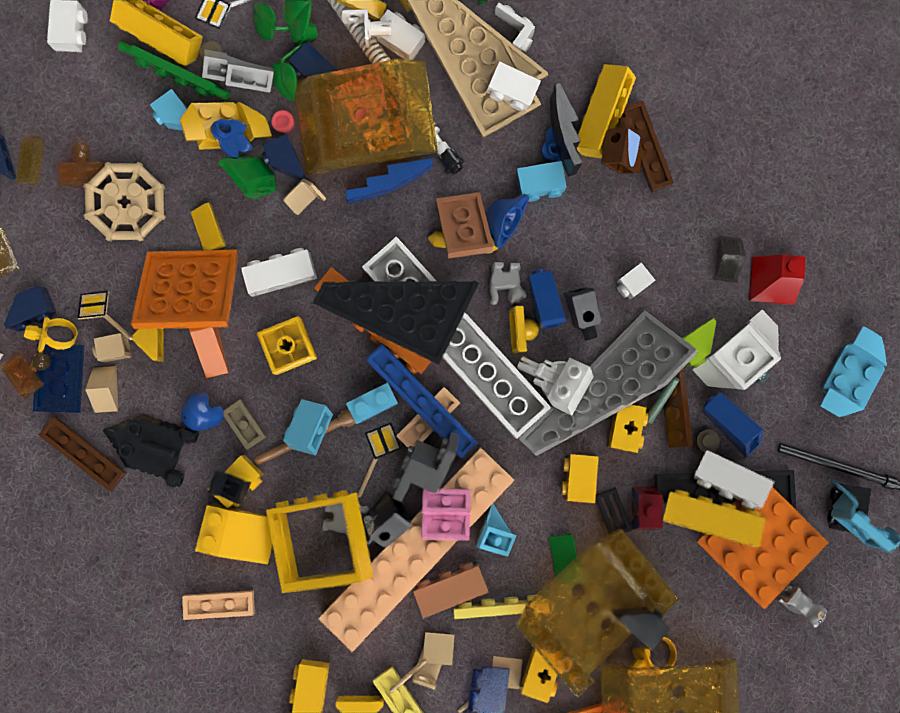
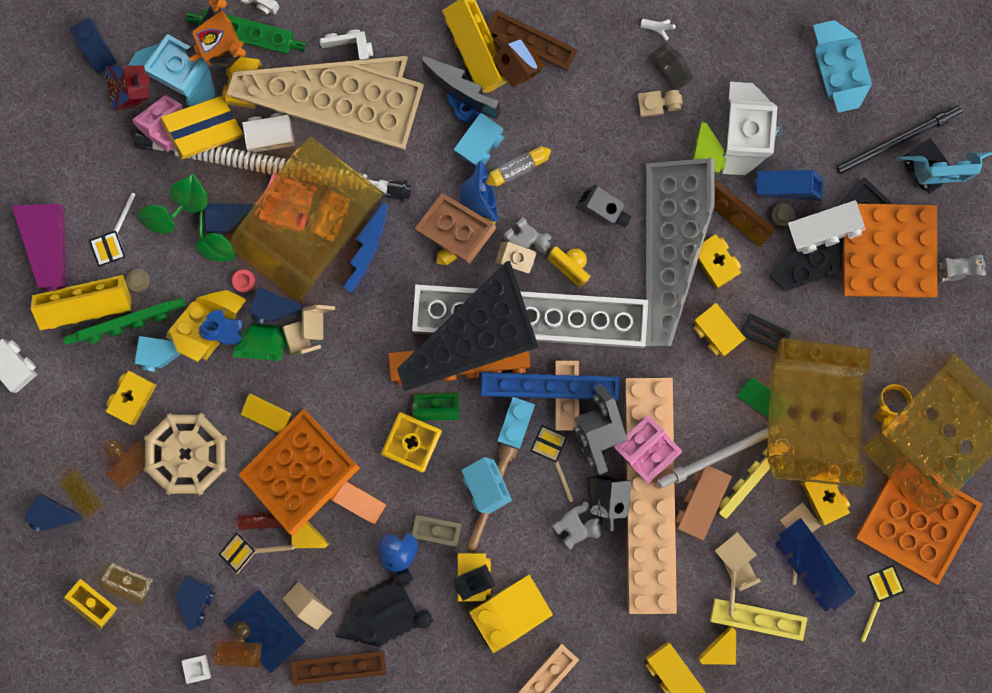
camera: 45 degrees left, 0 degrees up
(33, 332) = (225, 610): yellow piece -> none
(111, 348) = (283, 570): tan brick -> none
(124, 294) = (258, 522): none -> clear red pin
(136, 130) = (130, 410): none -> yellow brick
(236, 72) = (173, 278): light grey slope -> none
(275, 197) = (294, 340): none -> tan bracket
(278, 272) = (352, 394): white brick -> none
(284, 549) = (552, 589): yellow window -> none
(329, 337) = (436, 406): none -> green slope
(372, 28) = (245, 148): white bracket -> none
(451, 555) = (680, 474): none -> light grey bar
(488, 287) = (520, 257): none -> tan bracket
(495, 534) = (696, 431): medium azure slope -> none
(513, 87) = (392, 92): white brick -> none
(545, 299) = (567, 225): blue slope -> none
(551, 225) = (518, 166): none -> piece
(560, 381) = (636, 275): white brick -> none
(634, 281) = (619, 150): white brick -> none
(644, 624) = (862, 391): black slope -> none
(647, 508) = (786, 306): dark red torso -> none
(661, 400) = (721, 216): sand green piece -> none
(690, 272) = (652, 103): none -> tan plate
(714, 519) = (840, 267): yellow brick -> none
(747, 222) = (658, 26): none -> white bar
(776, 278) = (719, 48): red slope -> none

